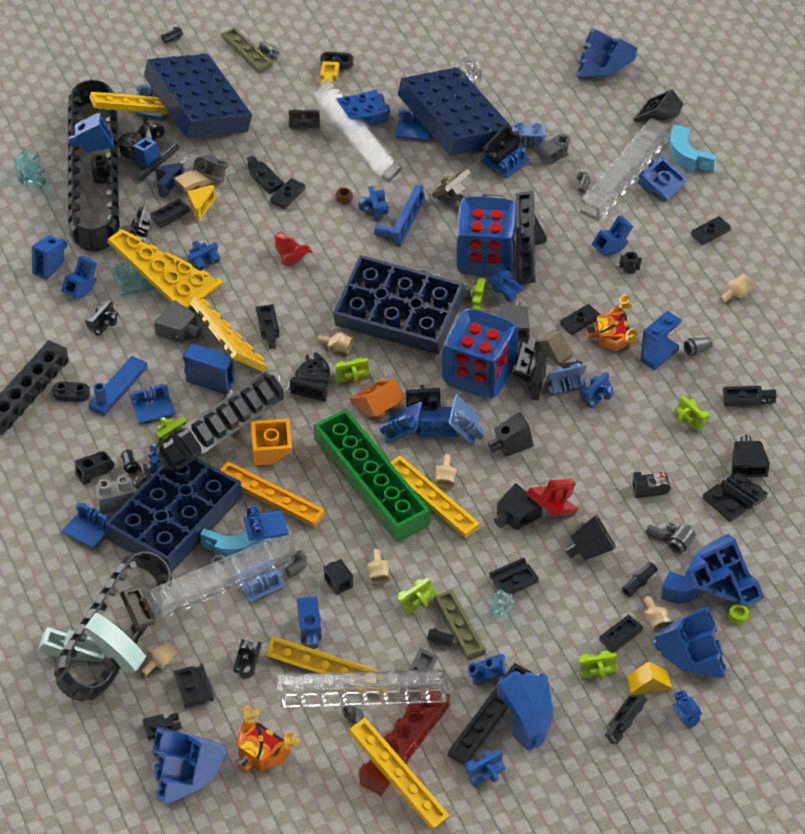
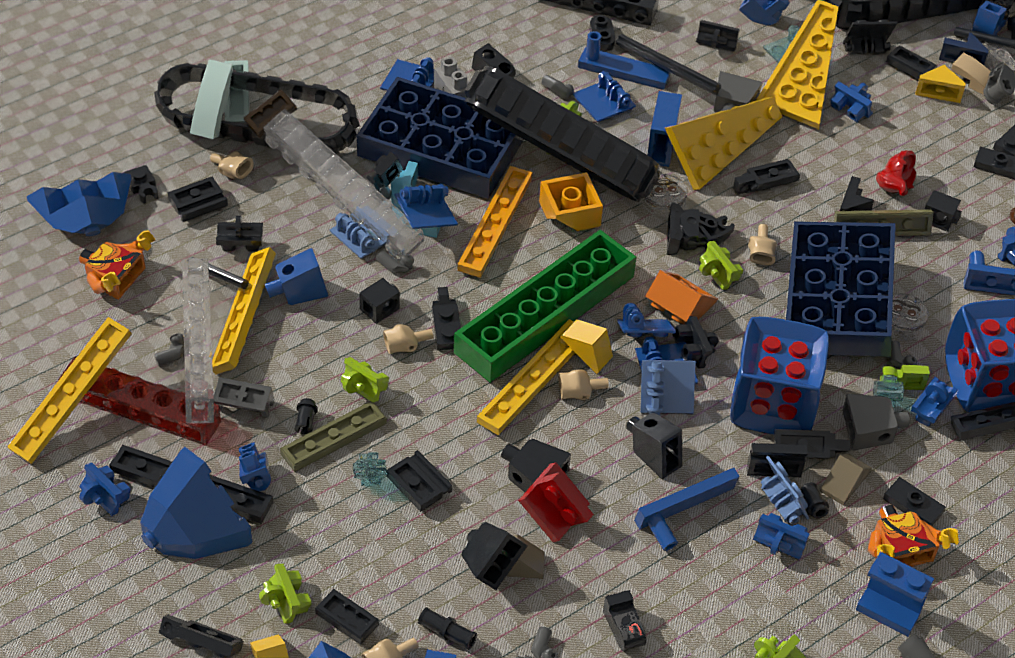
camera: 75 degrees right, 0 degrees up
(132, 353) = (668, 64): none -> black axle
(133, 428) = (558, 87): none -> dark grey arm
(227, 540) = (386, 171): none -> black plate
(291, 670) = (227, 276): none -> black bar
(310, 283) = (853, 200): none -> black slope
(330, 236) = (944, 210): none -> black brick
(334, 270) = (906, 221): none -> olive tile
(363, 541) = (445, 319): none -> black hinge
(414, 456) = (589, 343): none -> yellow slope
(490, 304) = (889, 388): none -> clear light blue gear
(561, 436) = (656, 512): none -> blue piece

